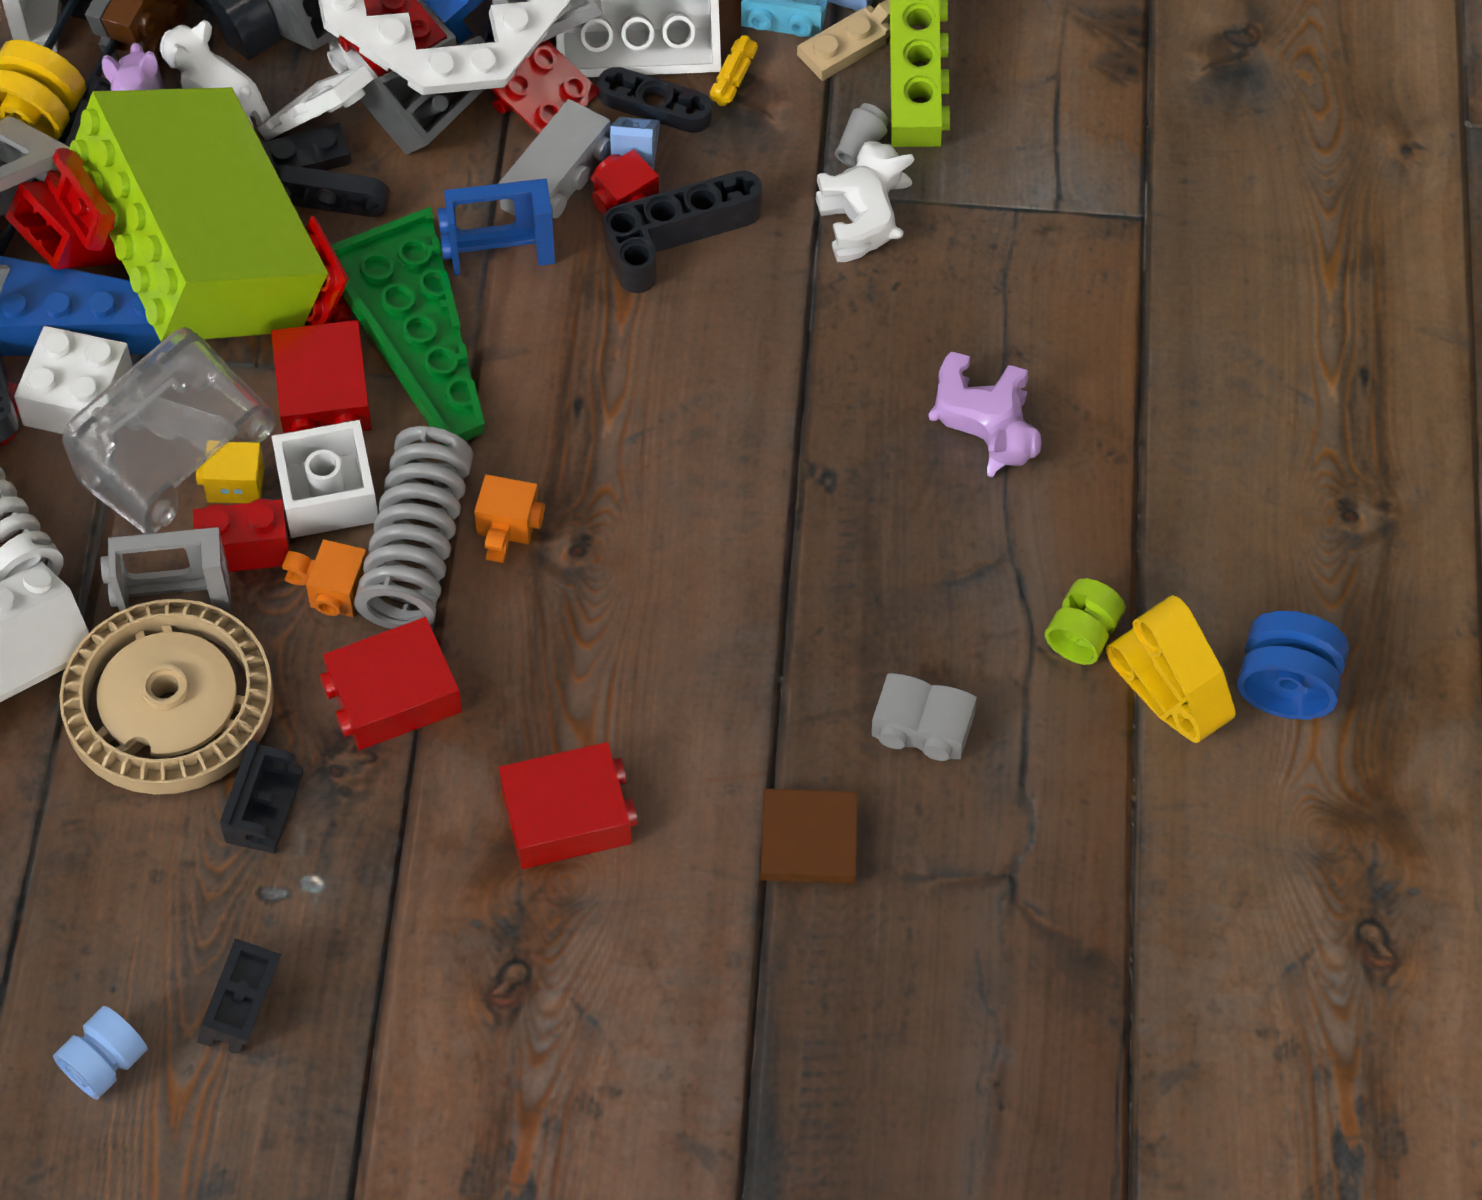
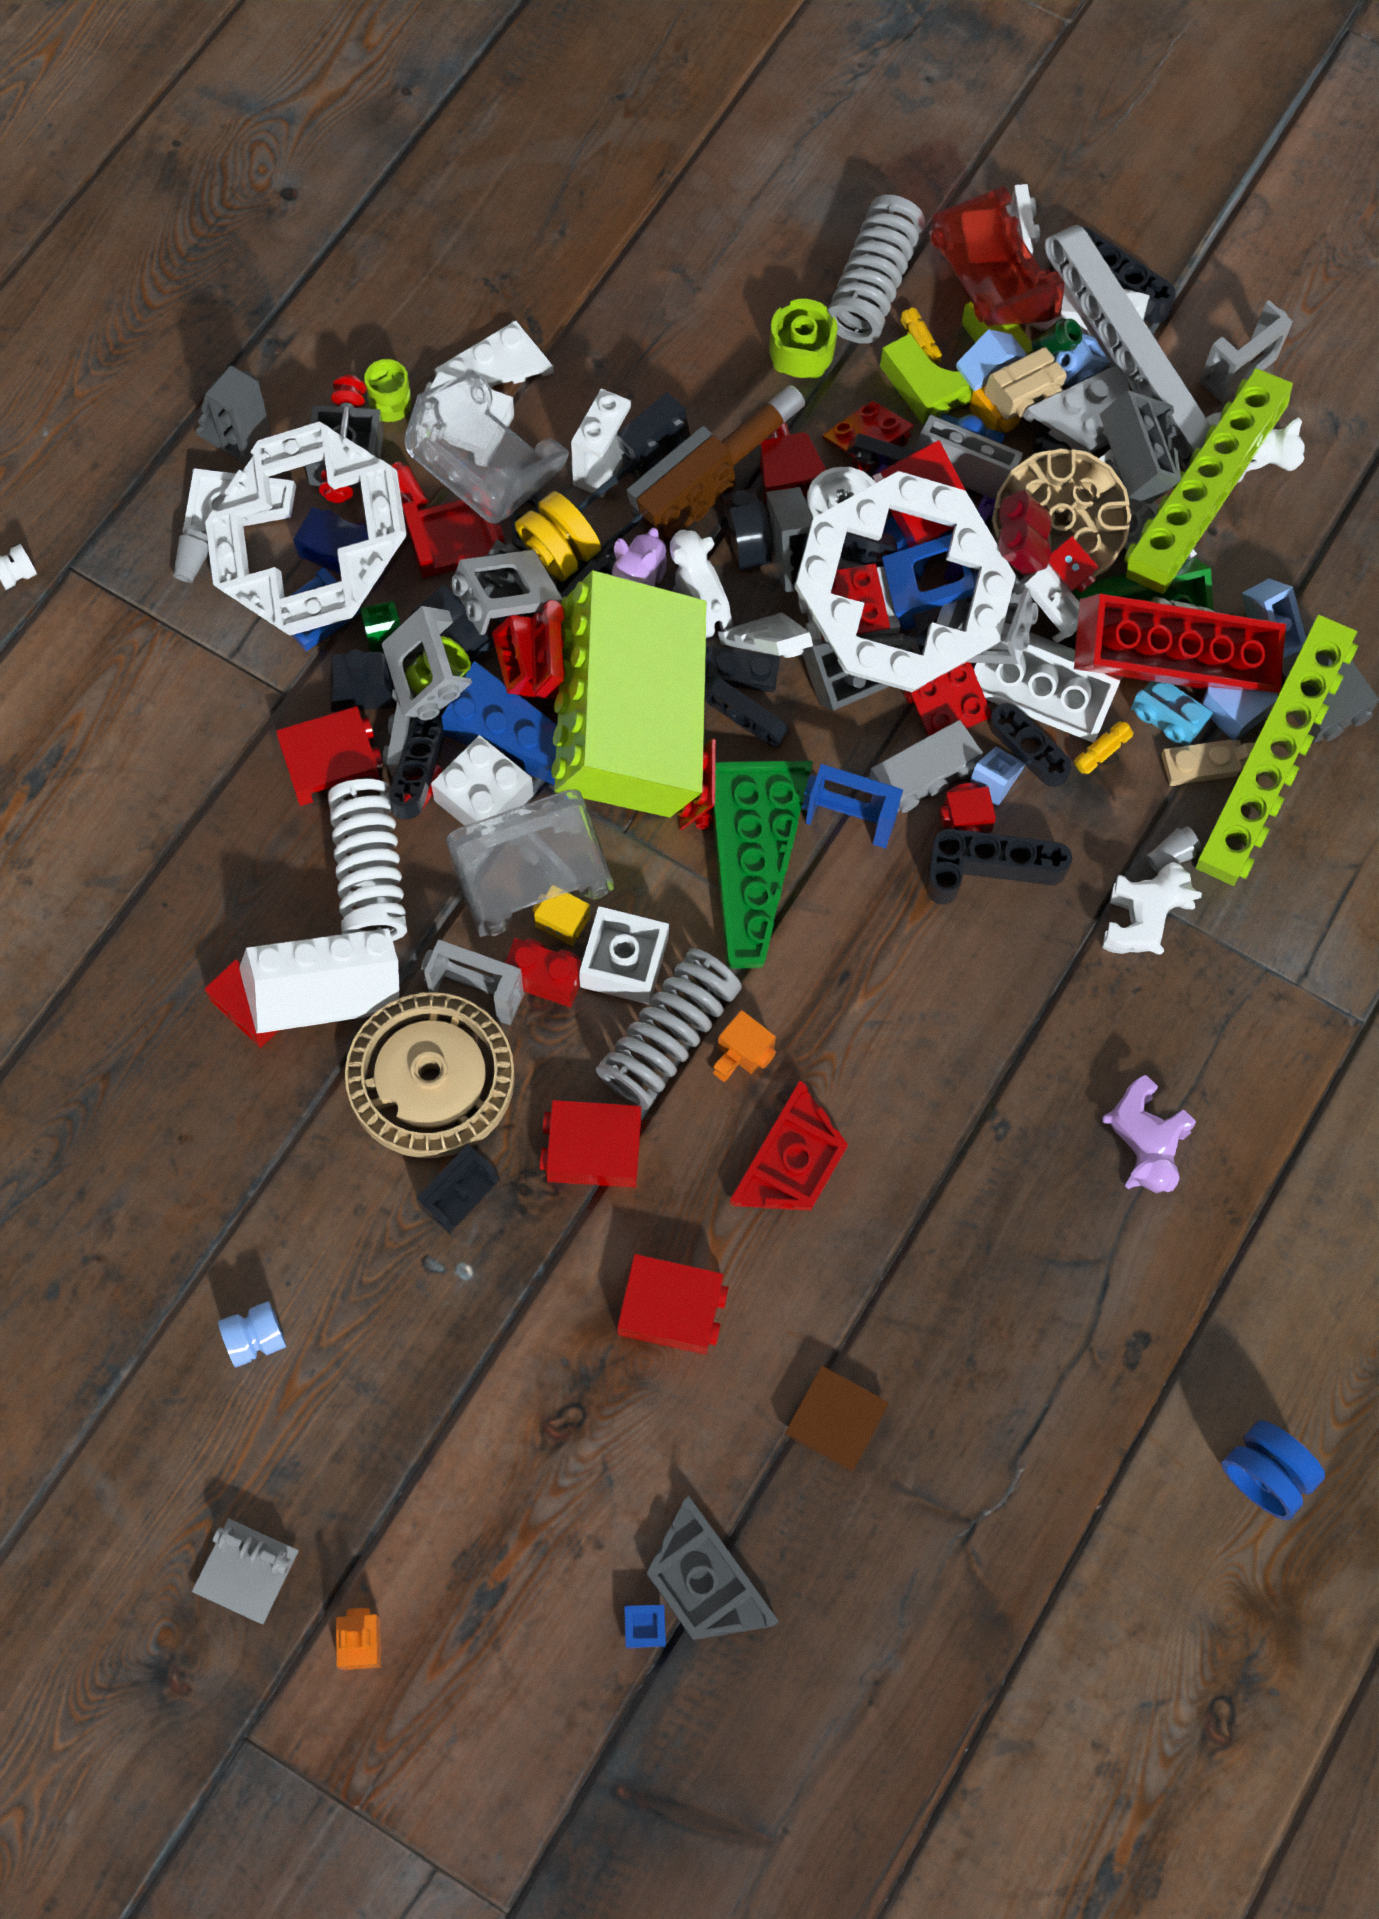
camera: 25 degrees right, 10 degrees up
(238, 995) = (368, 1339): black hinge -> none
(320, 376) = (662, 870): red brick -> none
(329, 578) = (591, 1036): orange brick -> none
(620, 603) = (793, 1158): none -> red wing
(713, 1144) = (645, 1626): none -> blue plate
(755, 1067) = (705, 1581): none -> dark grey wing
(923, 717) = (970, 1365): light grey brick -> none
(1085, 621) = (1137, 1346): lime wheel -> none
(1174, 670) = (1177, 1429): yellow connector -> none

